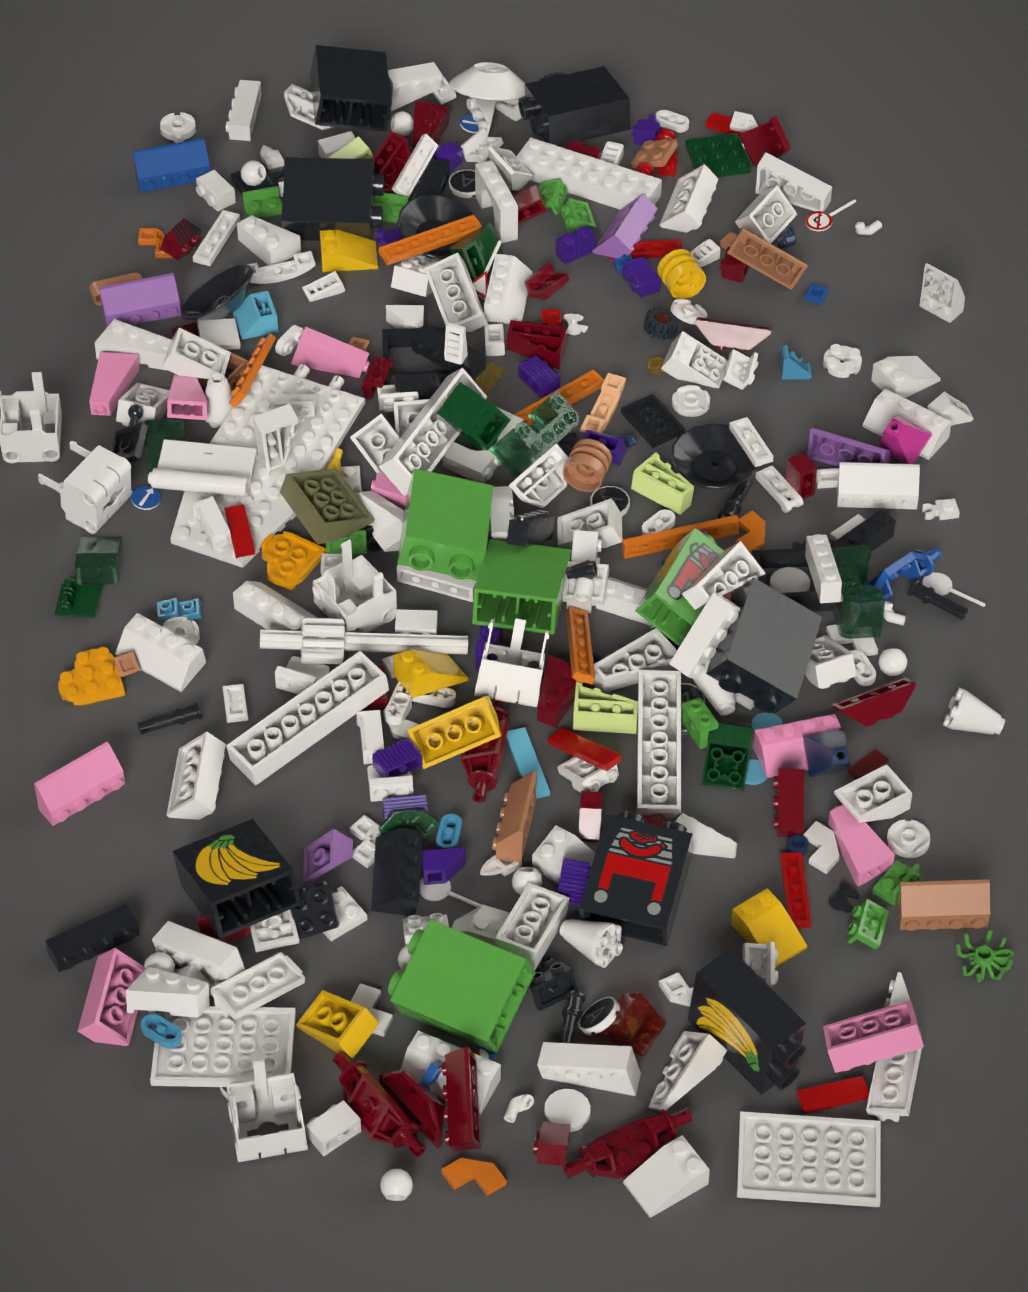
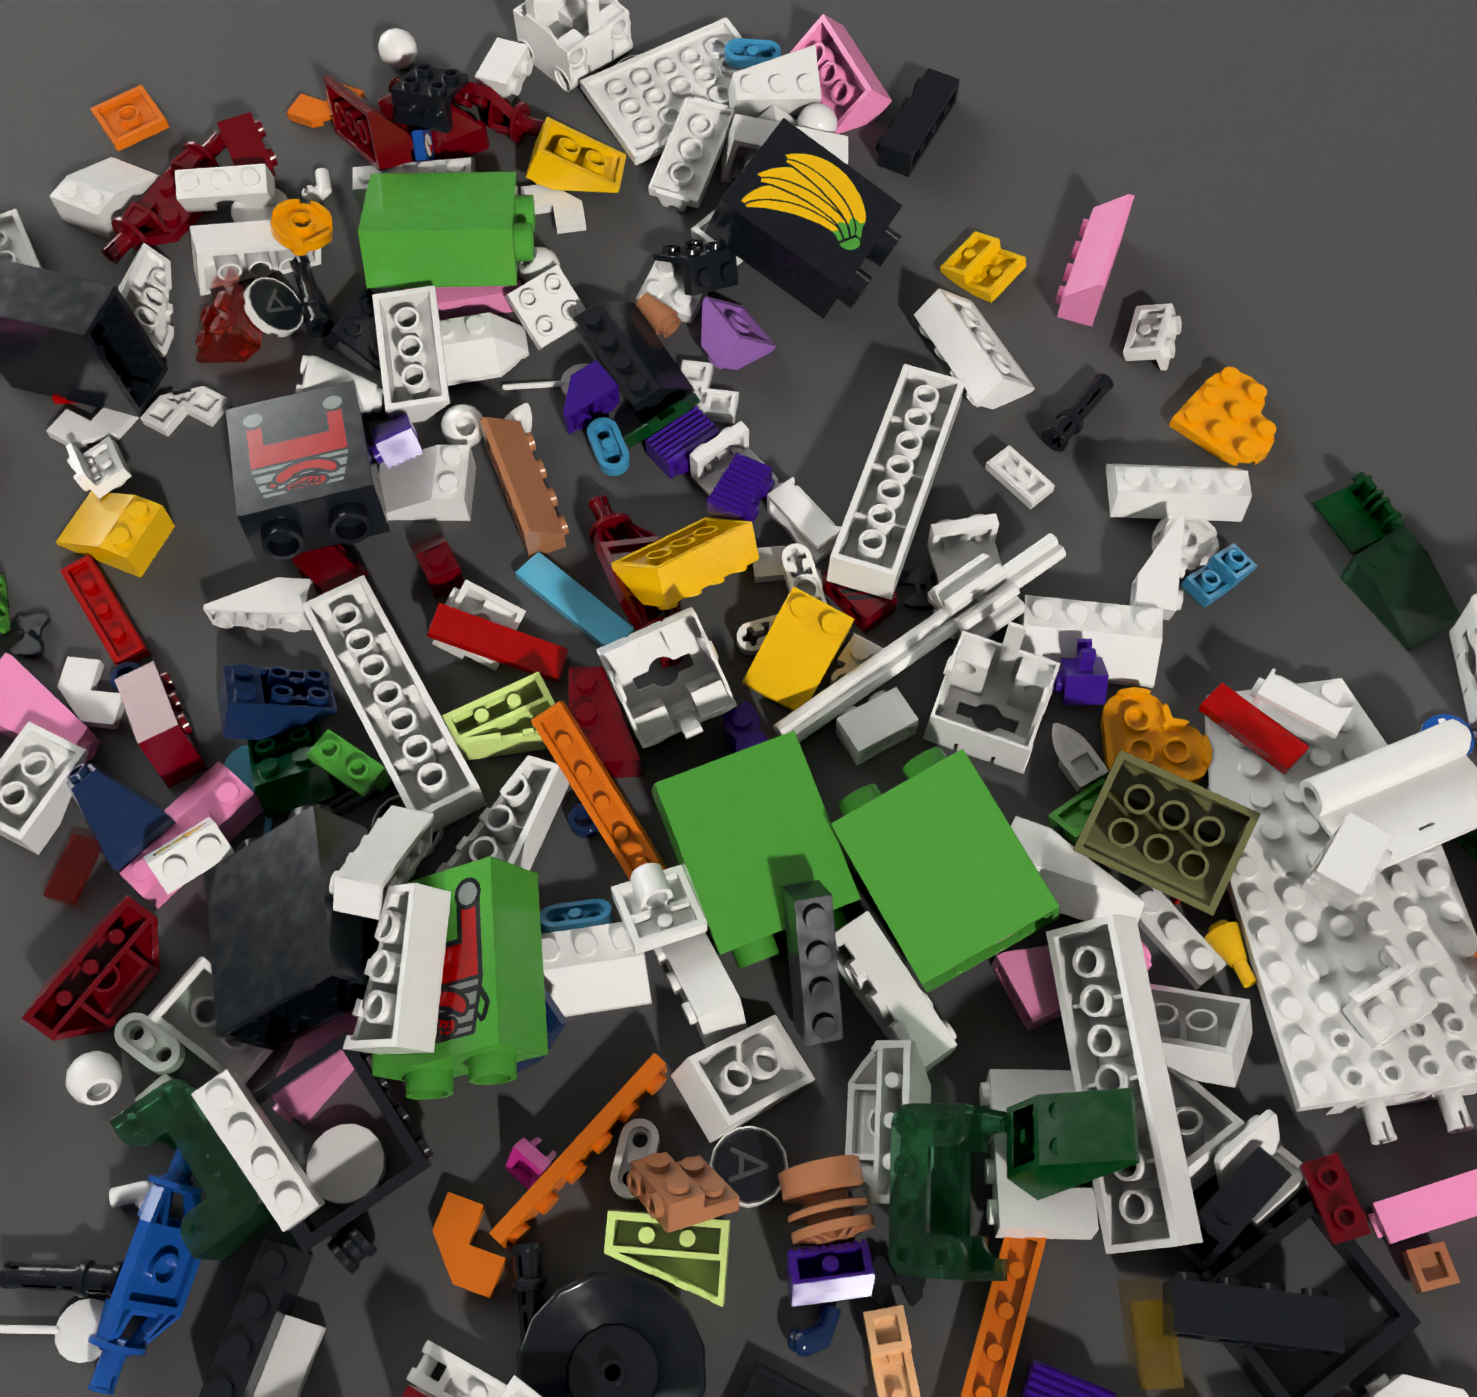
camera: 150 degrees right, 15 degrees up
(89, 736) = (1153, 334): none -> white bracket
(126, 664) = (1203, 450): nougat plate -> none
(140, 829) = (983, 266): none -> yellow slope
(213, 616) = (1159, 578): none -> white slope
(298, 592) = (1082, 678): none -> dark purple brick
(361, 891) = (660, 316): none -> nougat cone
(407, 1084) = (425, 97): none -> black bracket
(455, 345) = (1231, 1291): white slope -> none
(555, 1056) = (301, 239): none -> light orange plate
(585, 569) = (663, 904): black cone -> none
(601, 1114) = (204, 187): none -> white arch
(621, 1237) = (129, 118): none -> orange plate
(625, 620) = (575, 915): none -> dark azure plate
(646, 492) = (680, 1191): none -> nougat plate
(721, 779) = (271, 700): none -> dark blue slope
(801, 707) = (189, 855): none -> white brick

